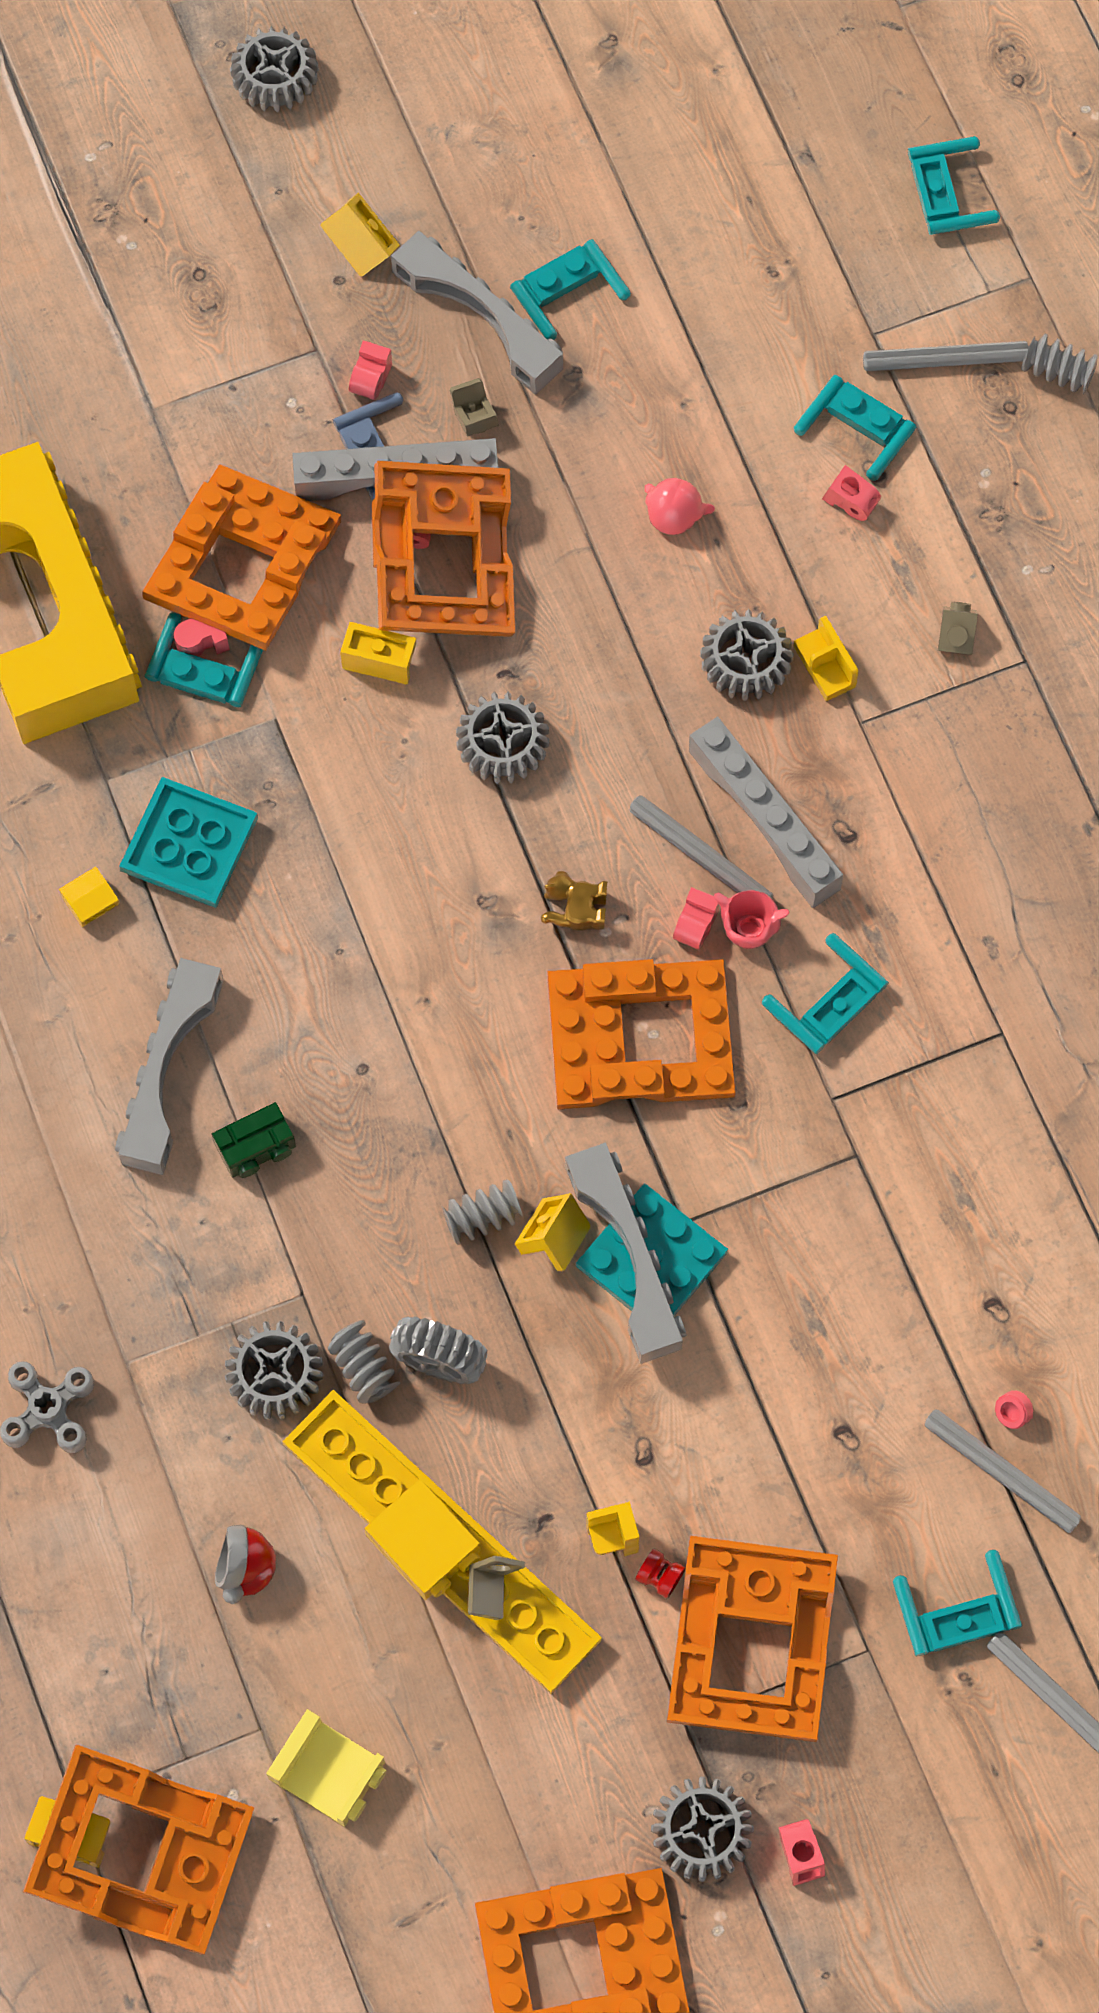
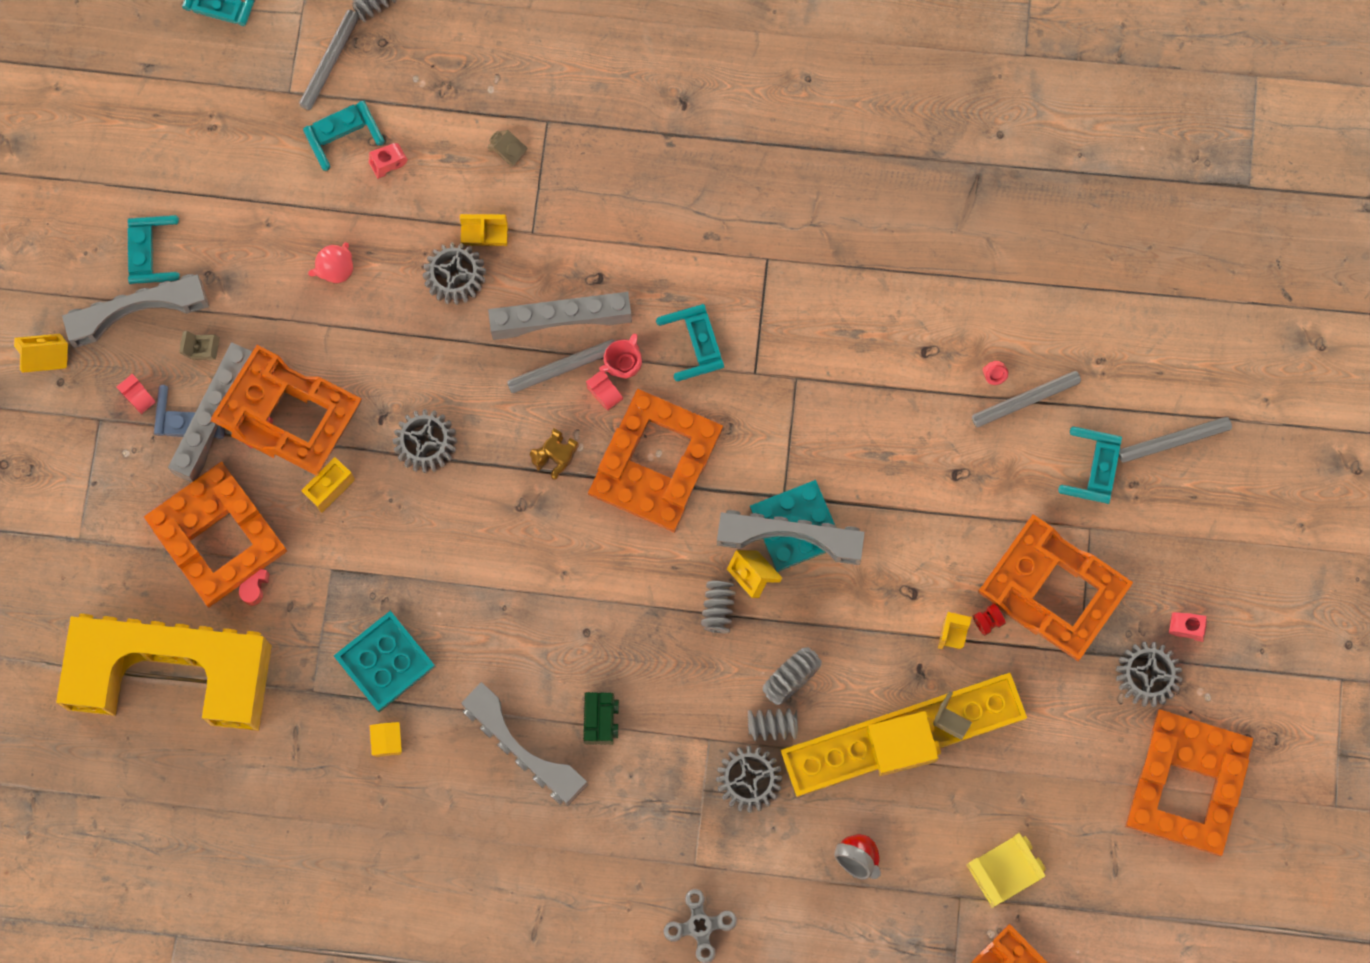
camera: 60 degrees left, 5 degrees up
(199, 674) = (276, 600): teal plate -> none

